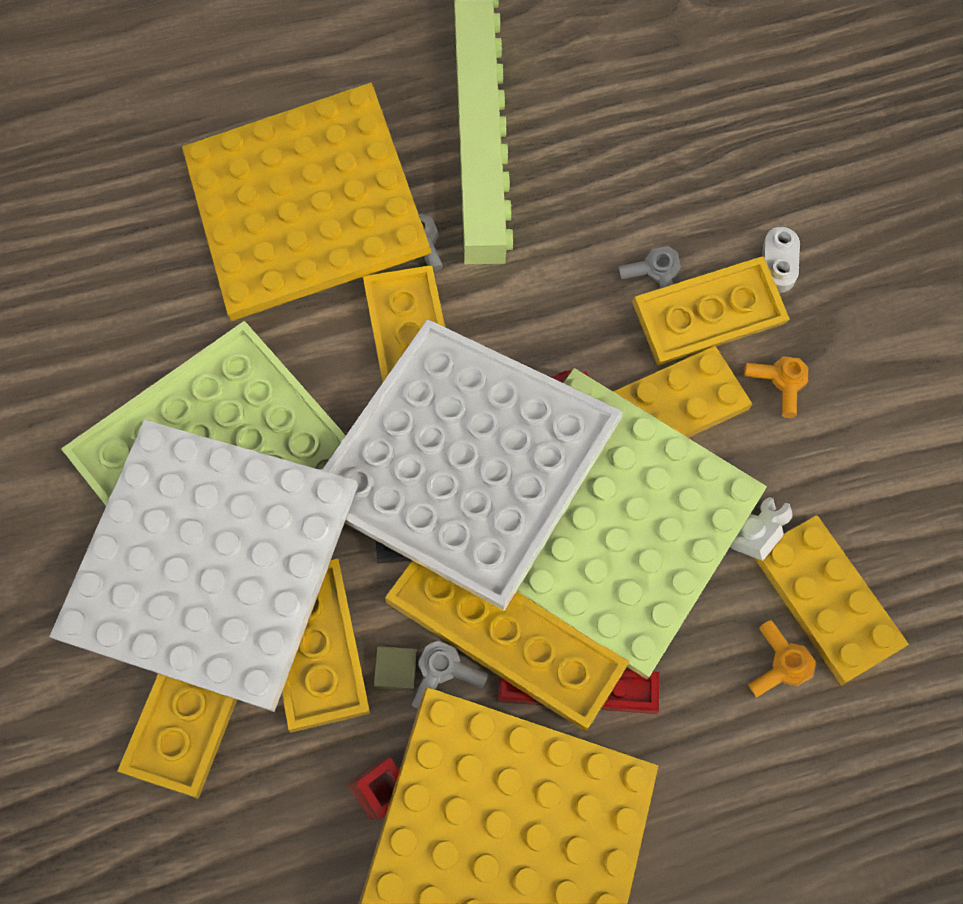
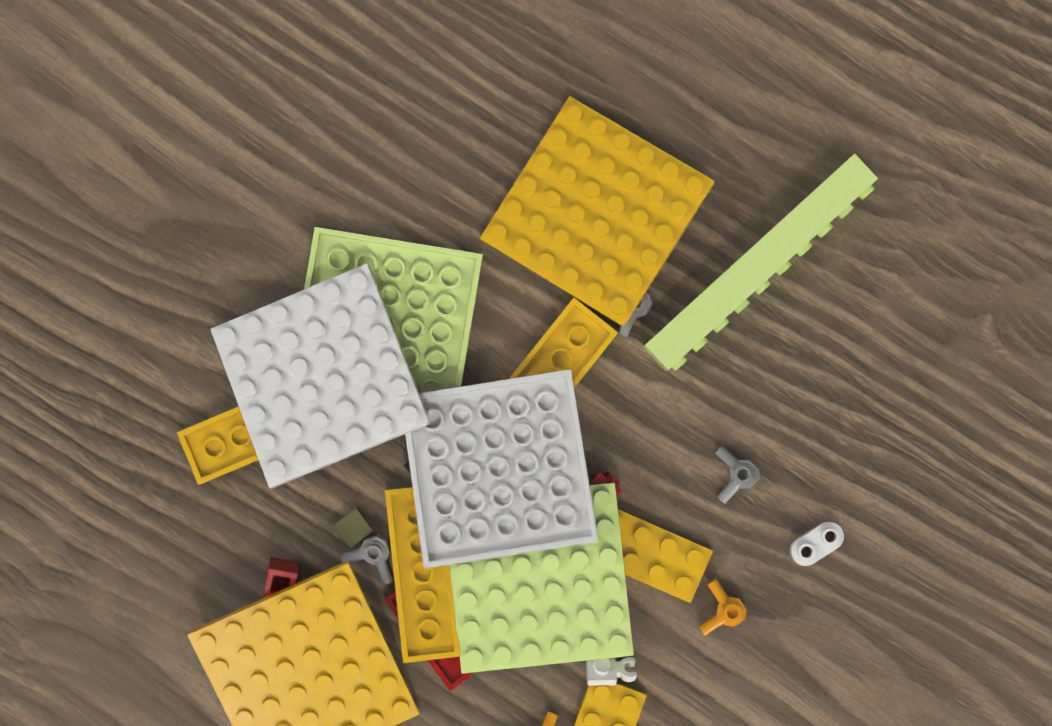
camera: 50 degrees right, 20 degrees up
(326, 671) = (318, 495): yellow plate -> none
(710, 310) = (735, 530): yellow plate -> none

